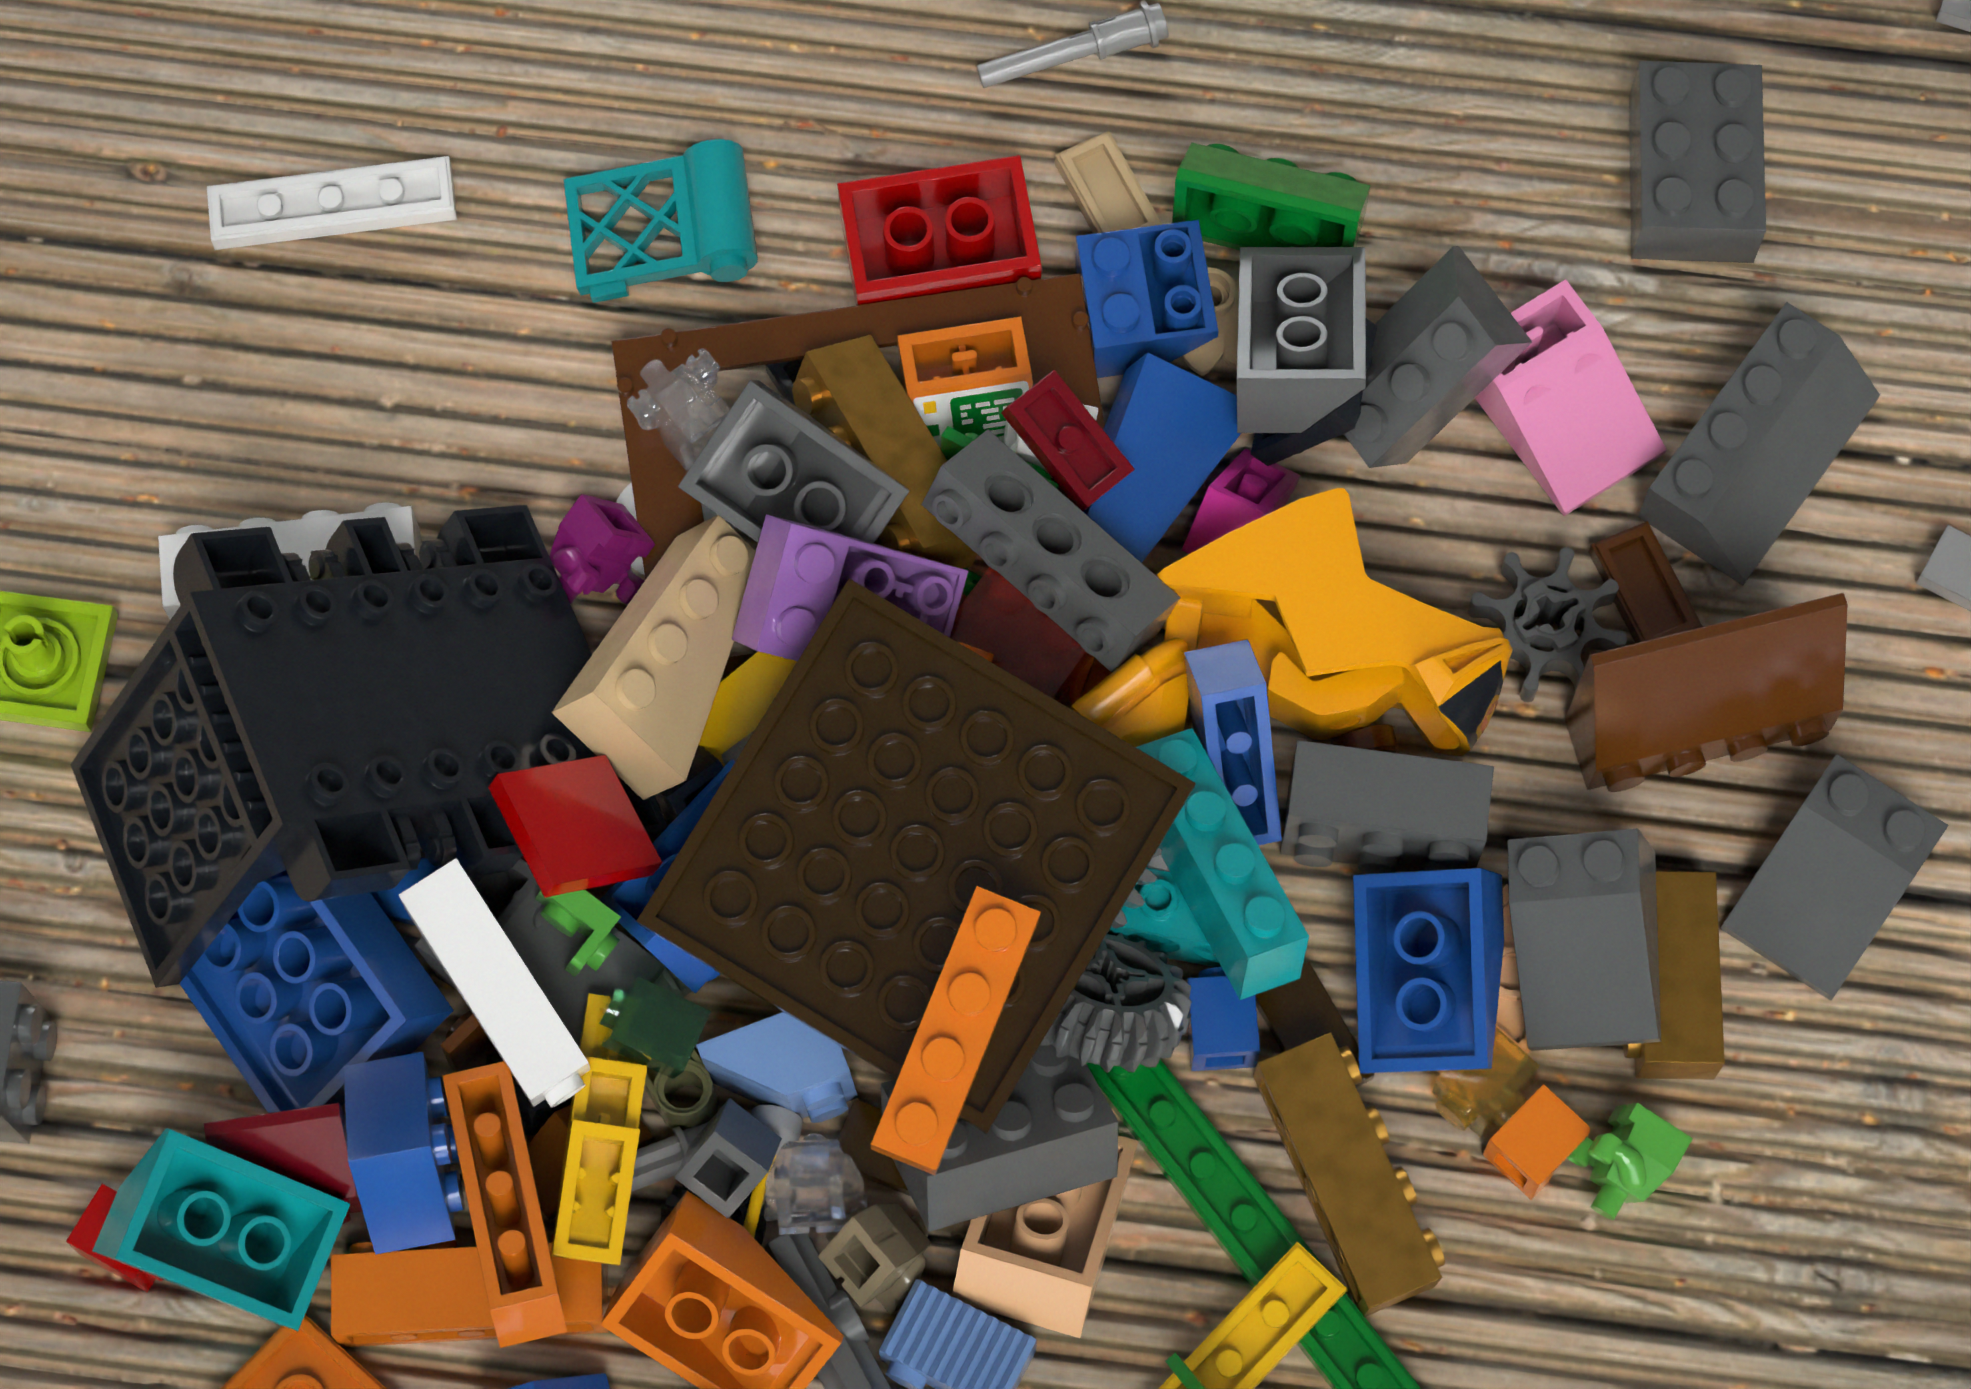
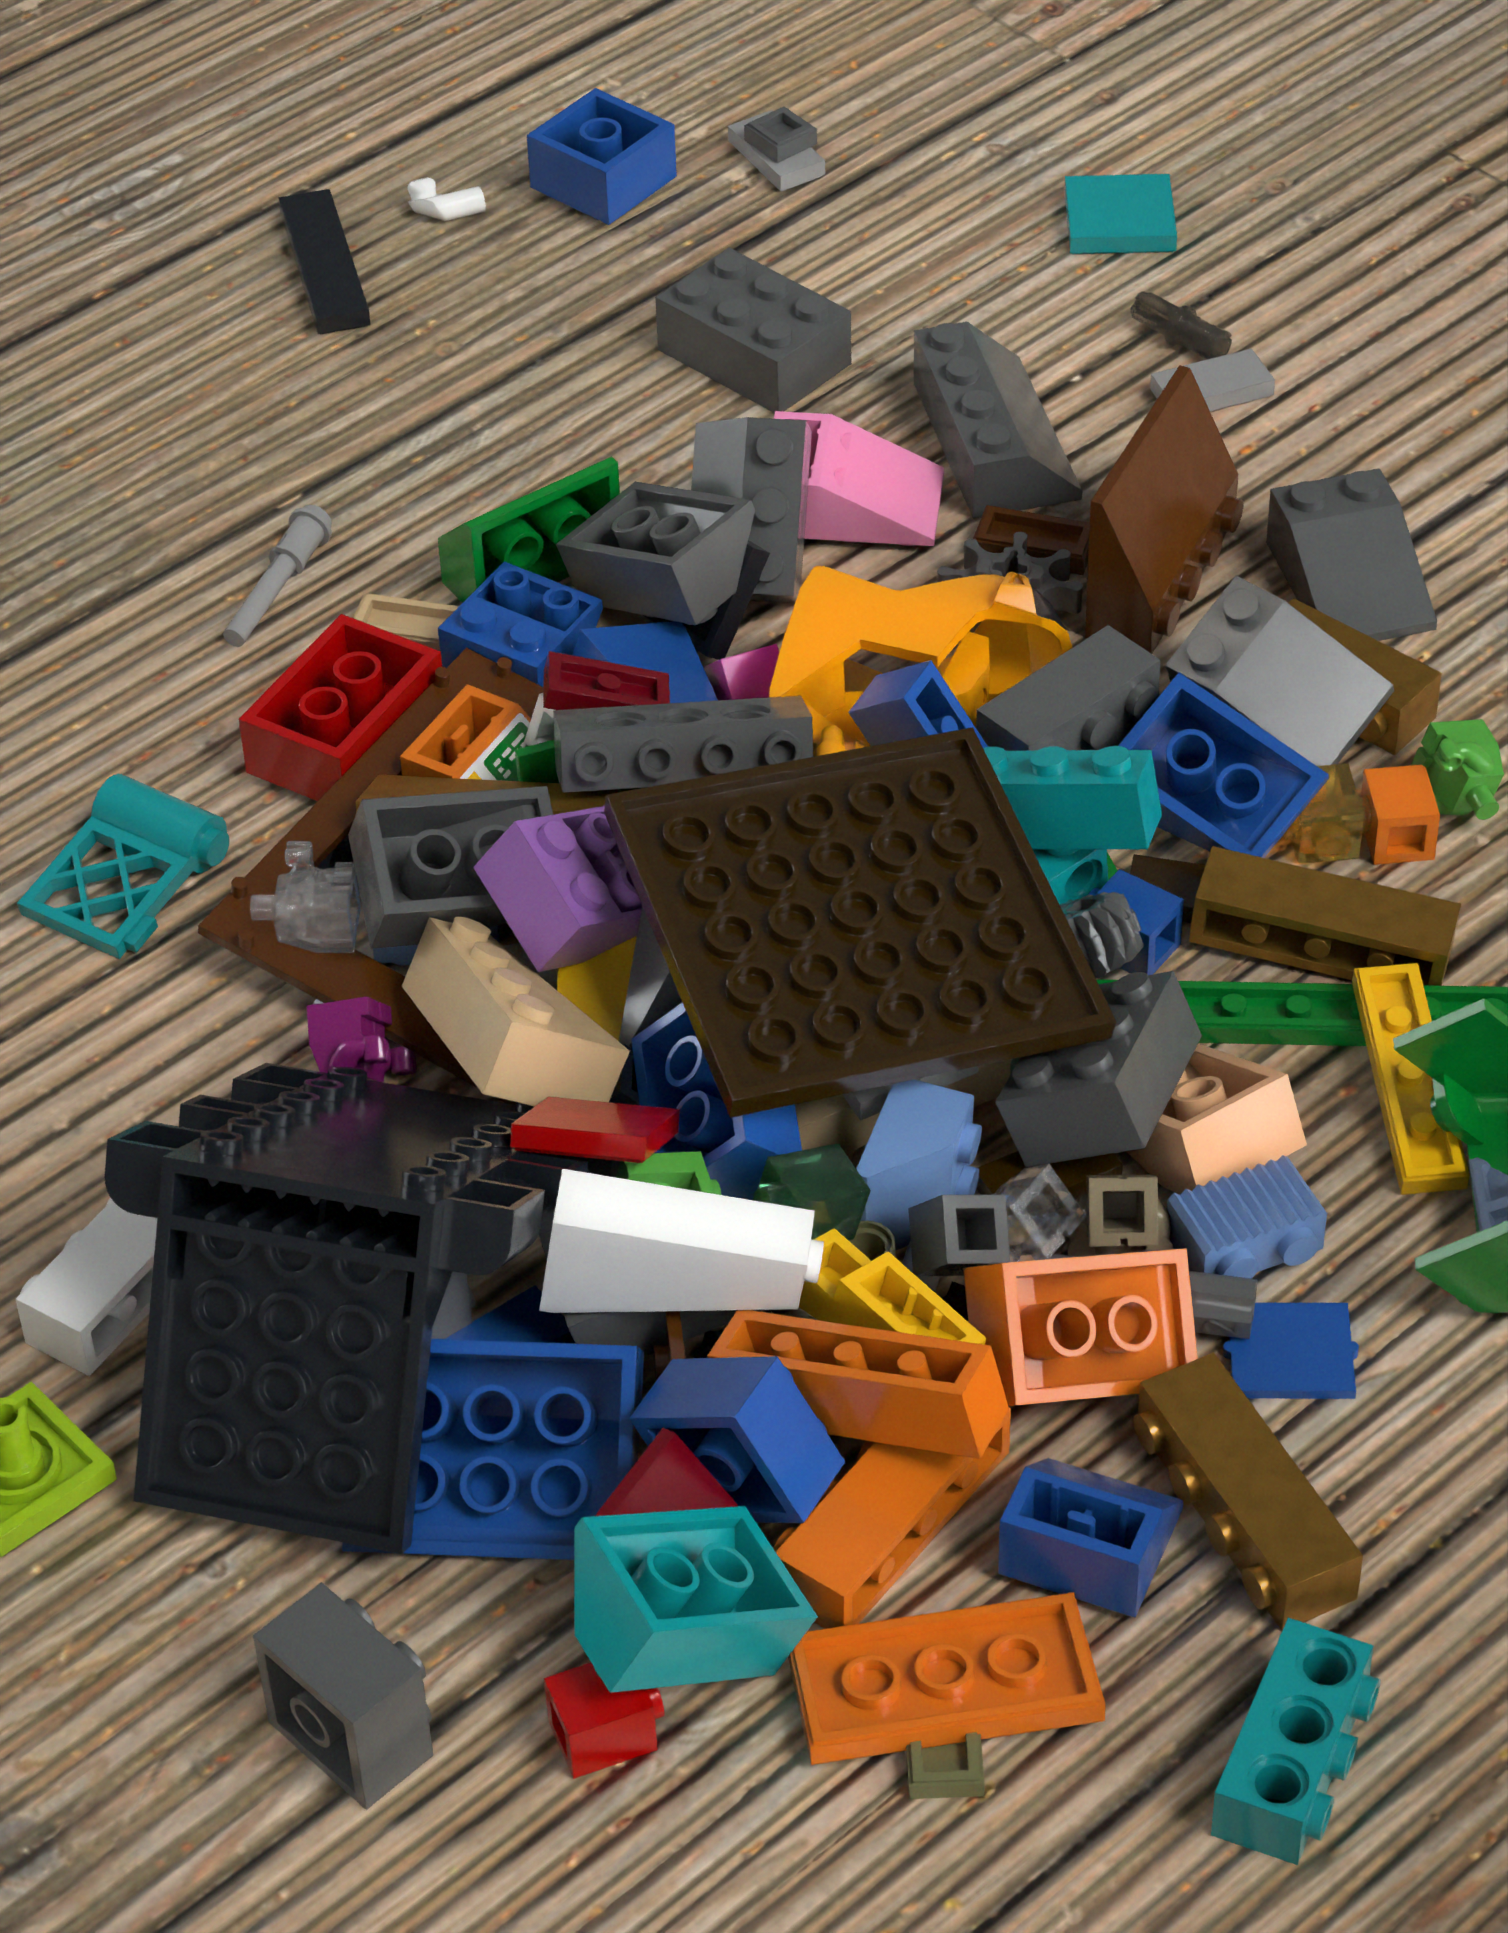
camera: 50 degrees left, 25 degrees down
(955, 1030) = (1030, 961): orange brick -> none

